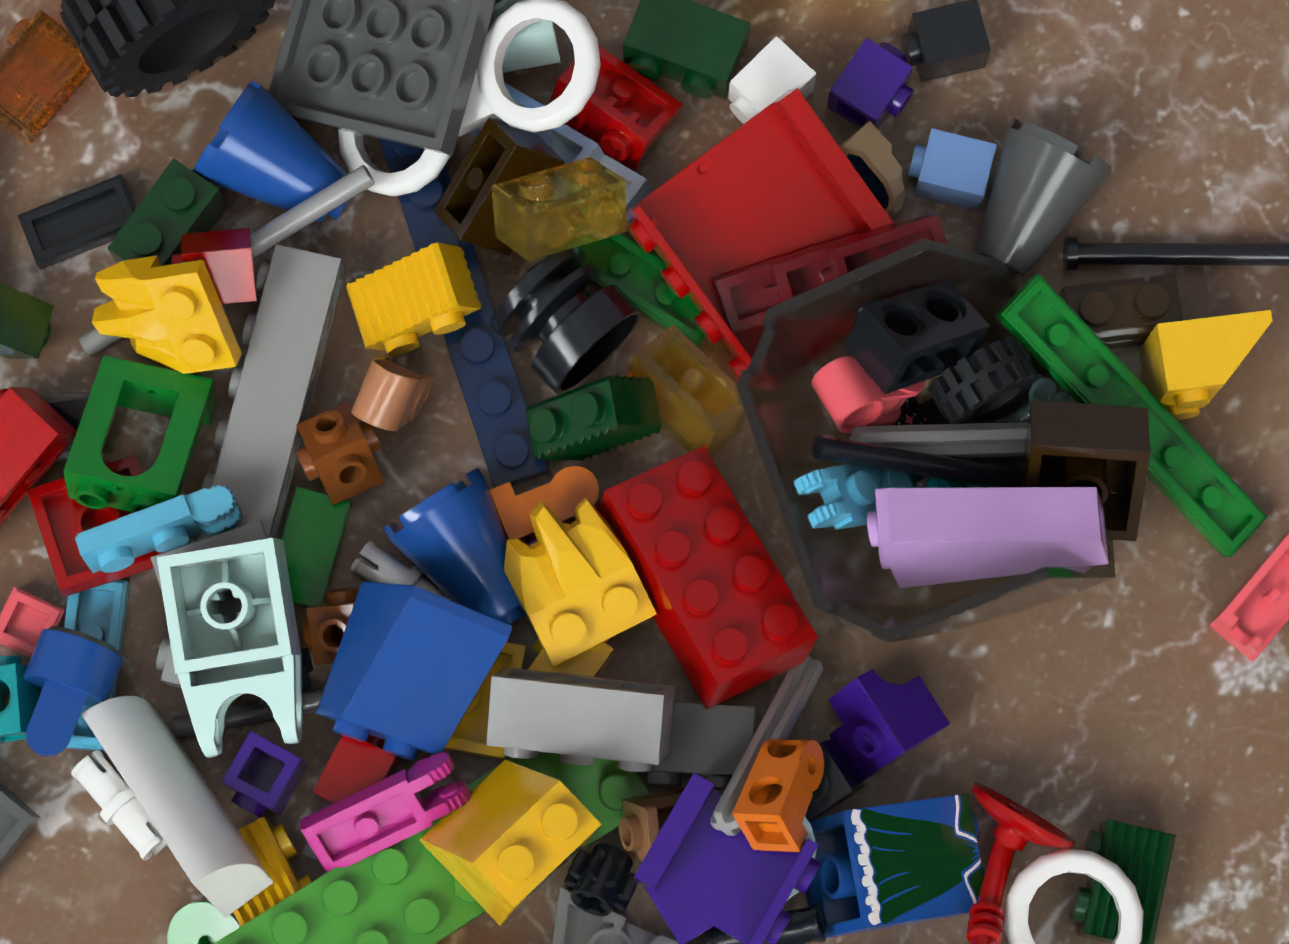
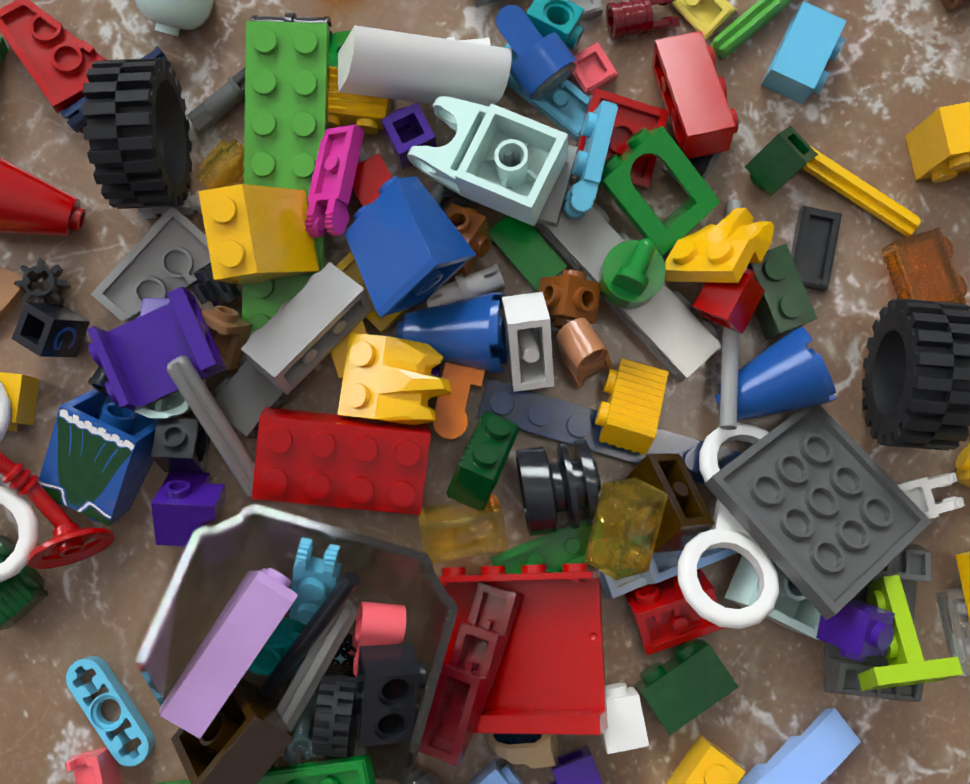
camera: 125 degrees right, 5 degrees up
(264, 392) = (632, 273): none -> green piece
(421, 460) = (528, 341): none -> white brick
(779, 794) = (171, 408): orange leg -> none
(1198, 617) = (92, 709): none -> medium azure beam

